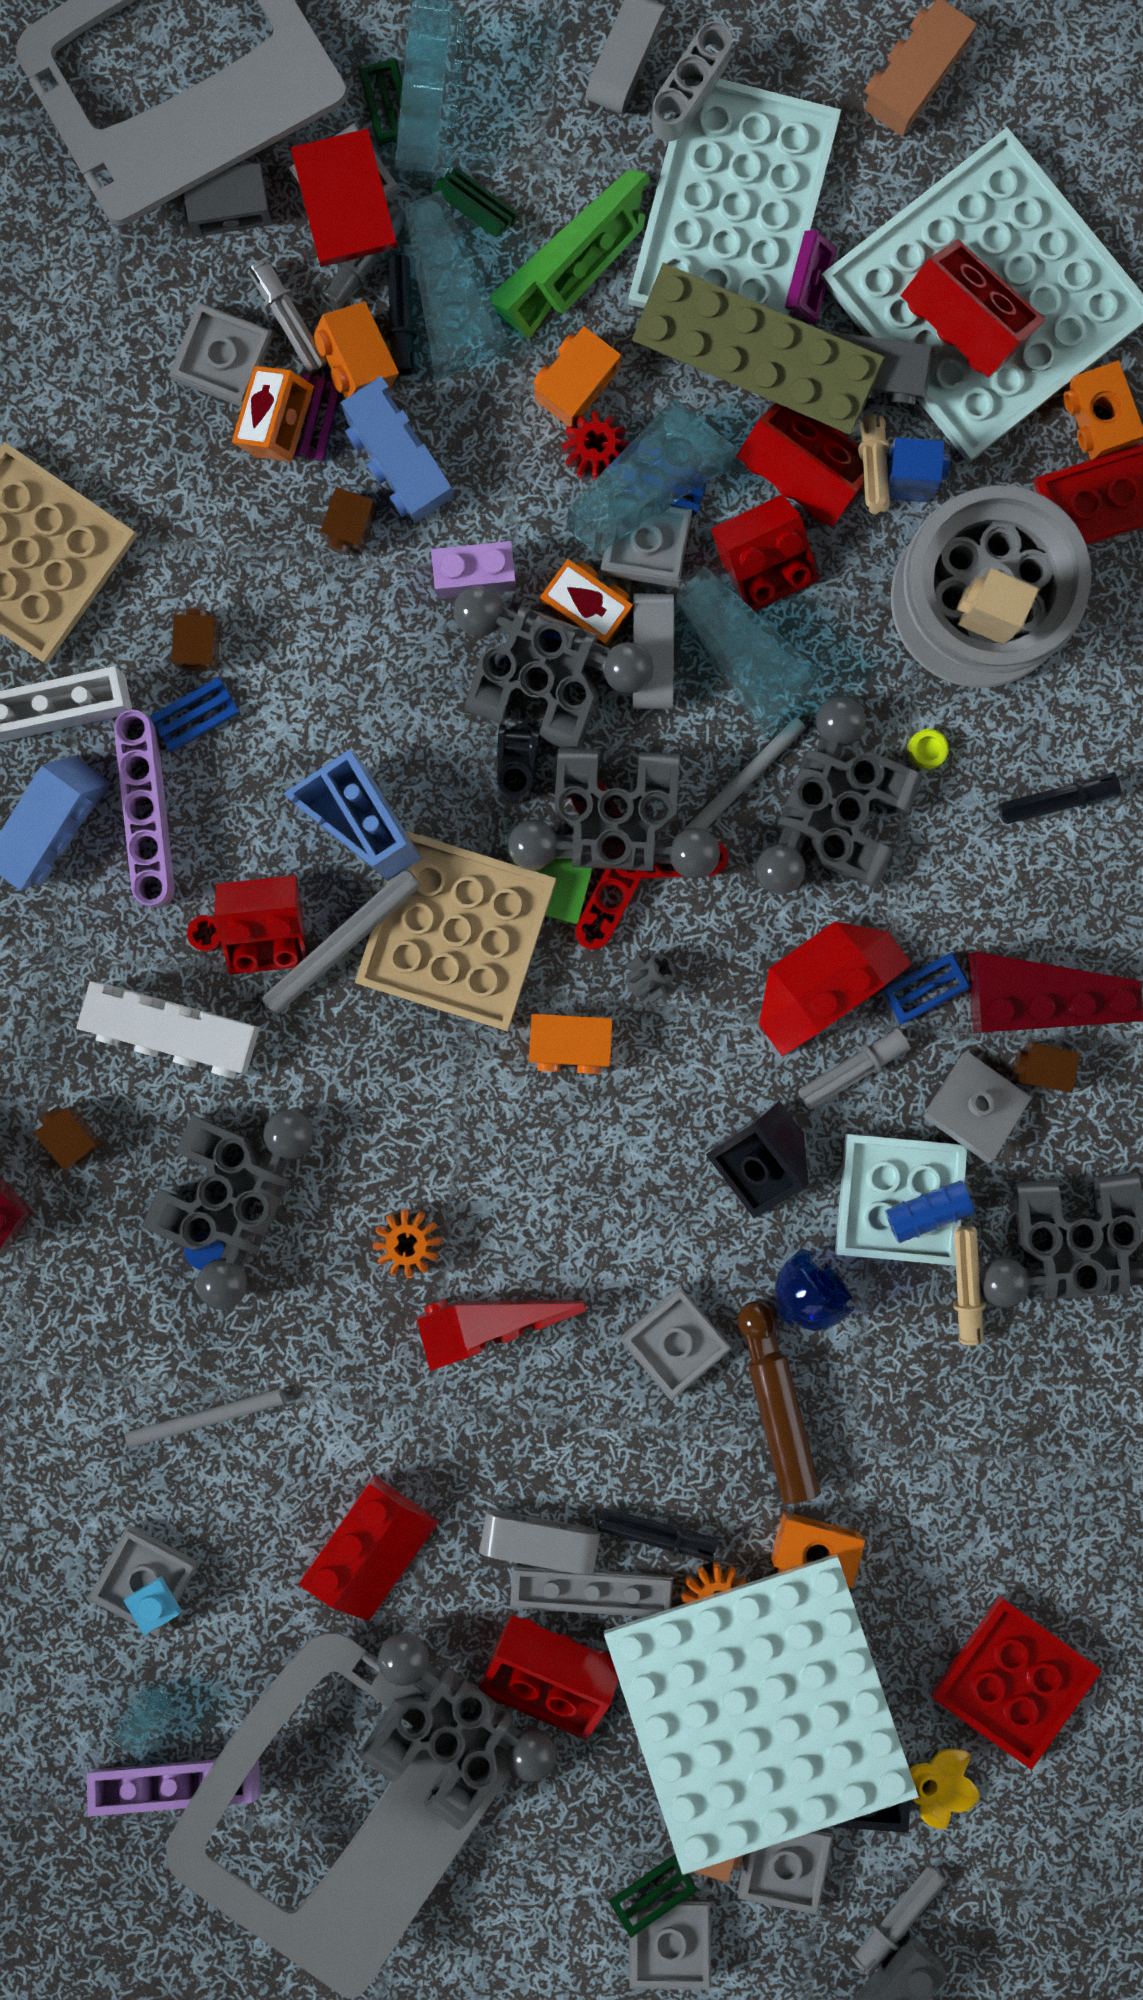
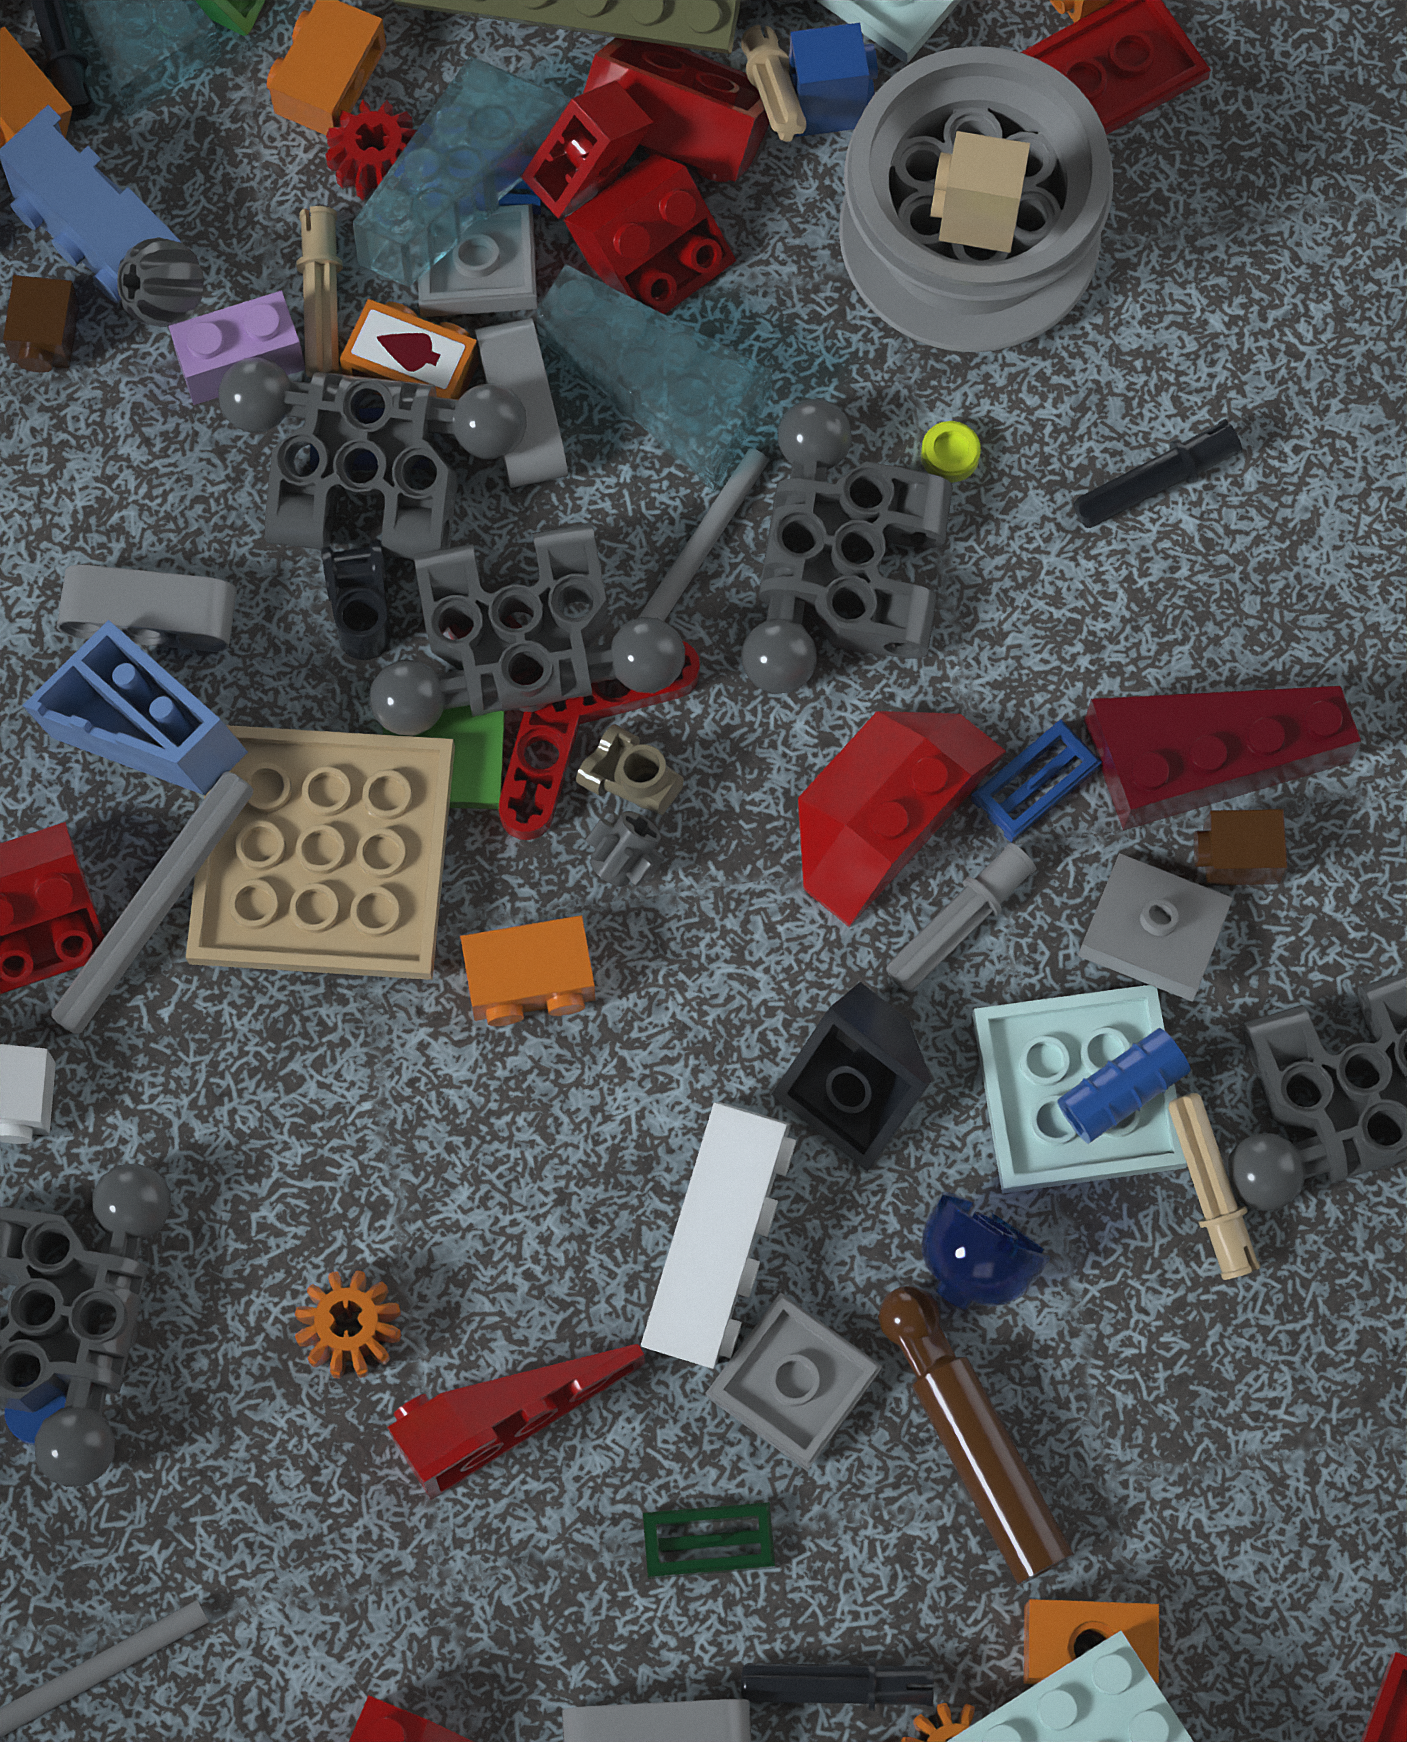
camera: 15 degrees left, 15 degrees down
(377, 738) = (148, 607): none -> light grey beam
(431, 518) = (160, 282): none -> dark grey piece
(537, 540) = (319, 270): none -> tan axle
(565, 1420) = (655, 1545): none -> dark green tile
(651, 1242) = (716, 1235): none -> white wedge
(660, 917) = (630, 771): none -> dark tan plate
(737, 484) = (586, 148): none -> red brick

